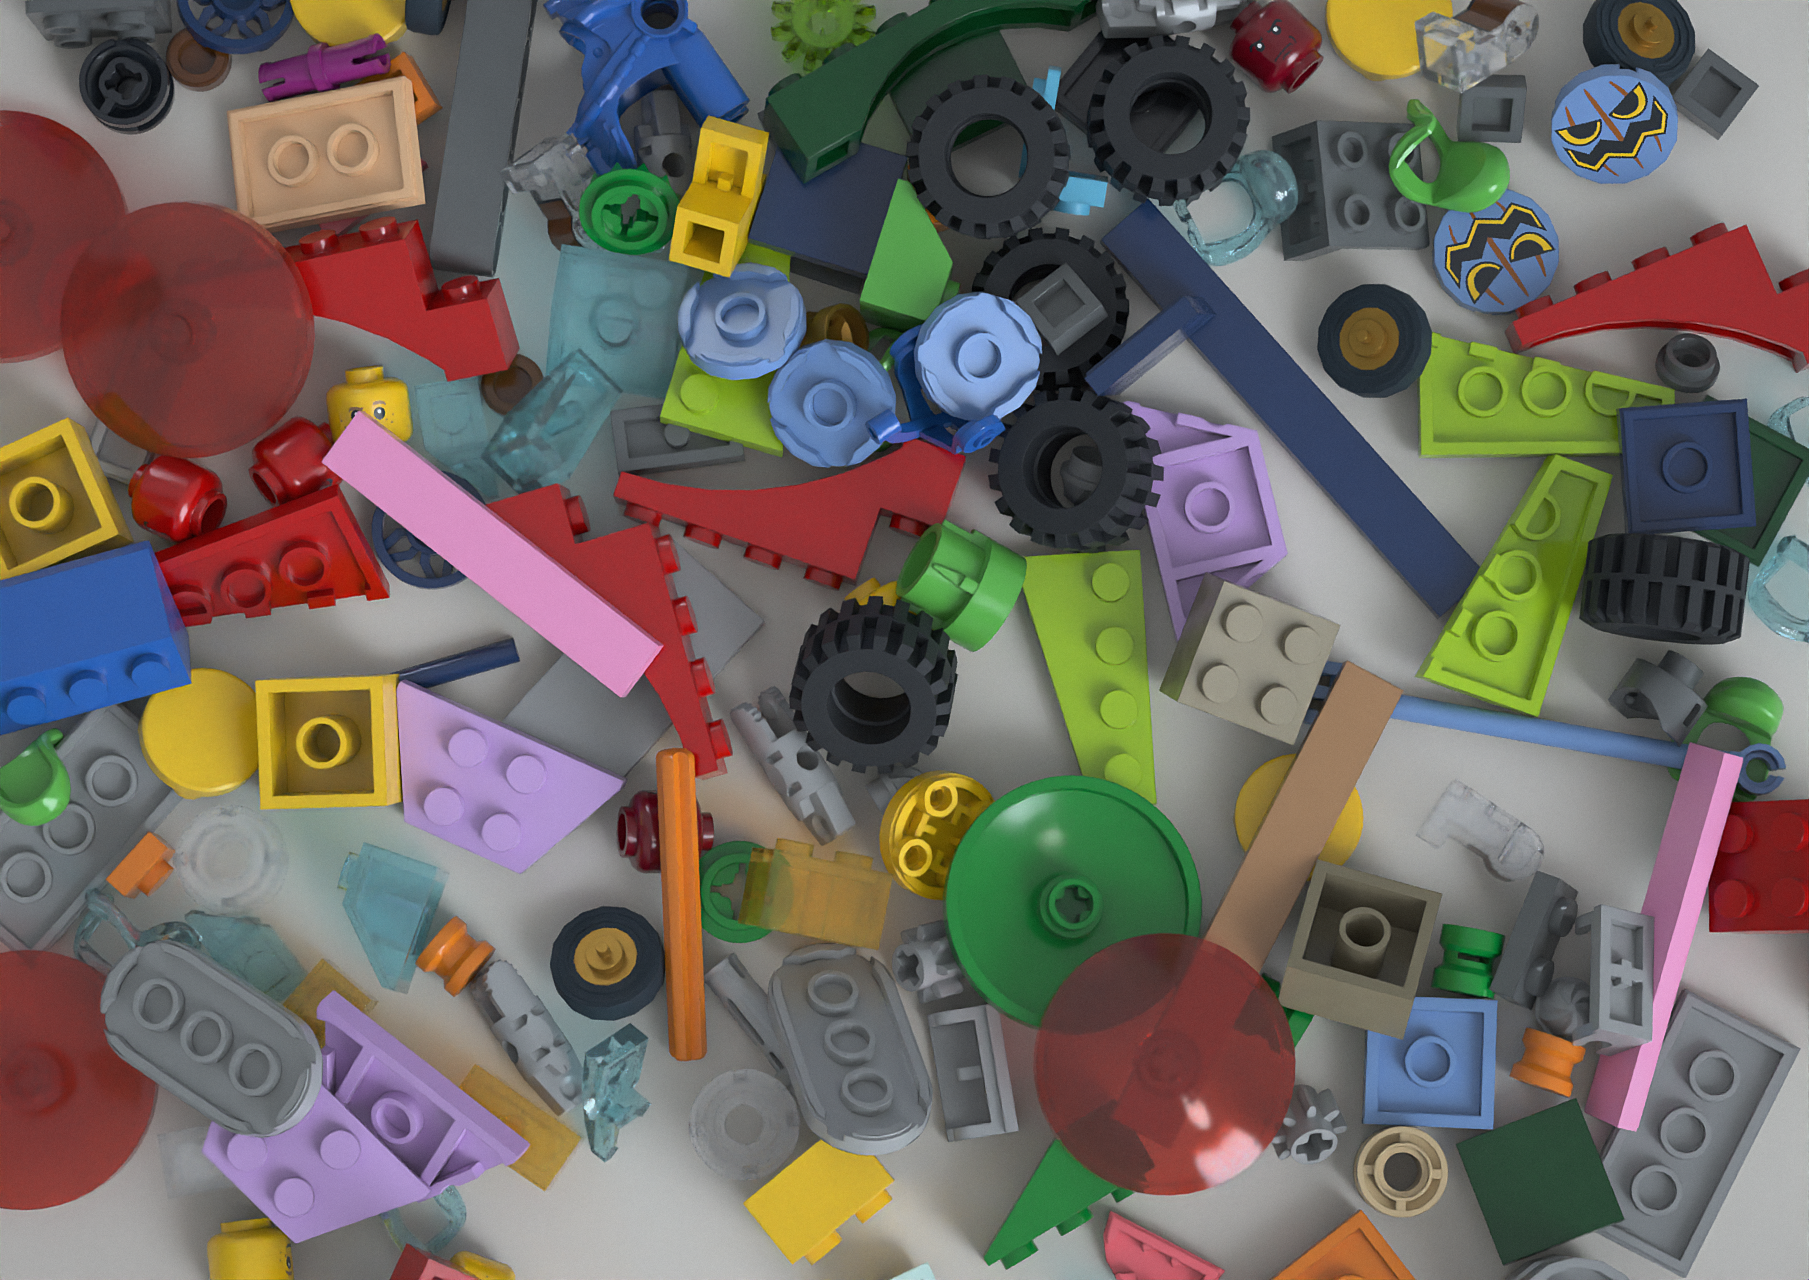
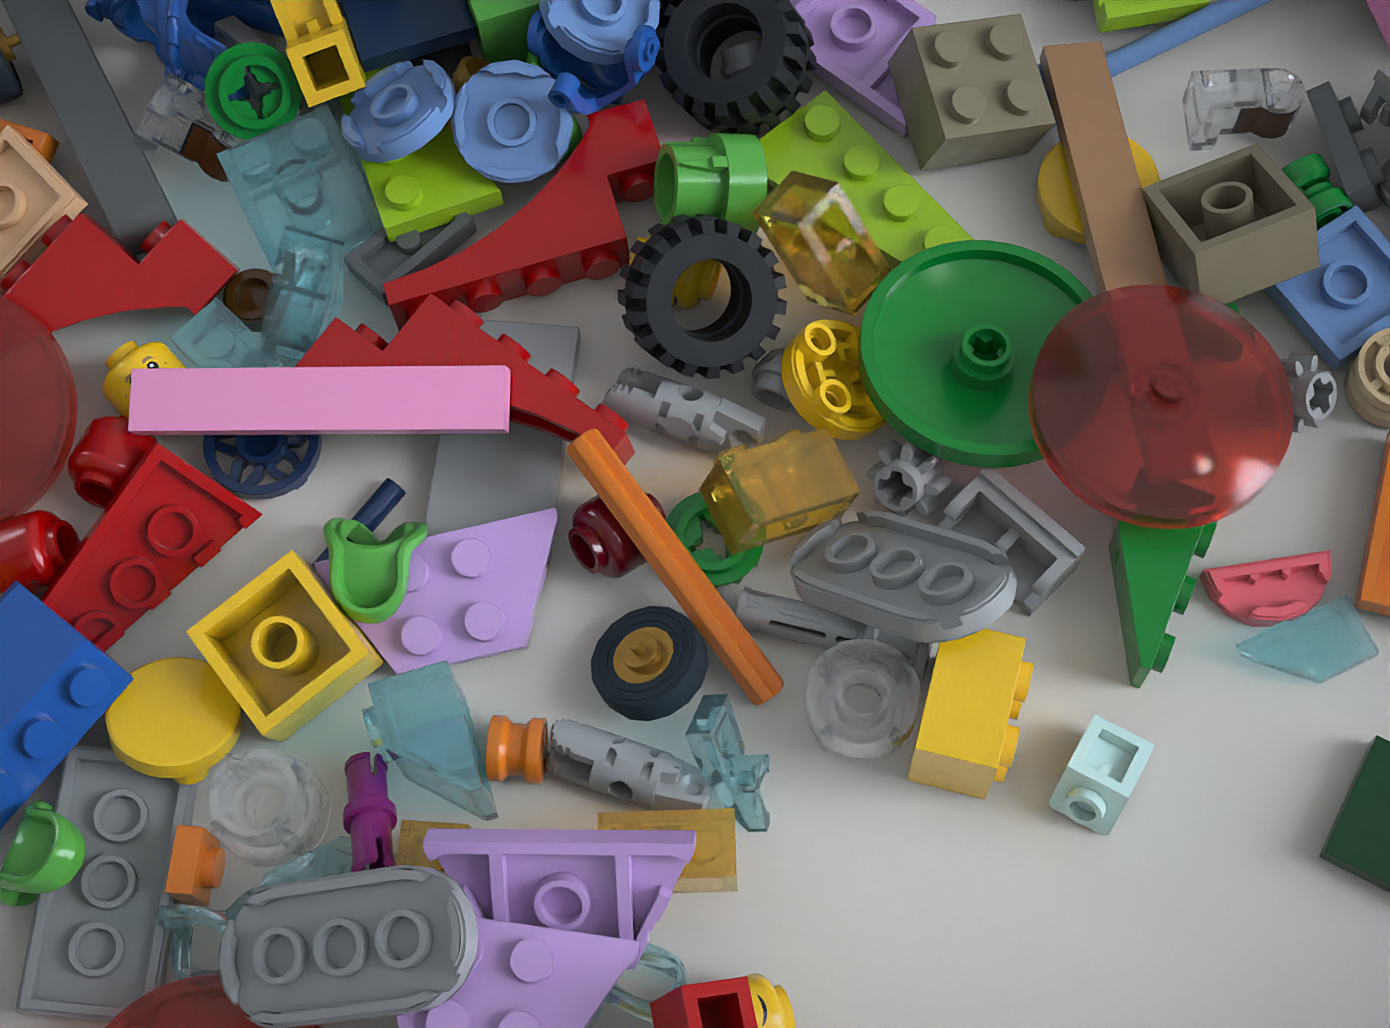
camera: 30 degrees left, 15 degrees down
(301, 931) = (369, 813): none -> magenta pin
(430, 739) = (372, 574): none -> bright green piece
(1011, 710) = (822, 242): none -> clear yellow brick

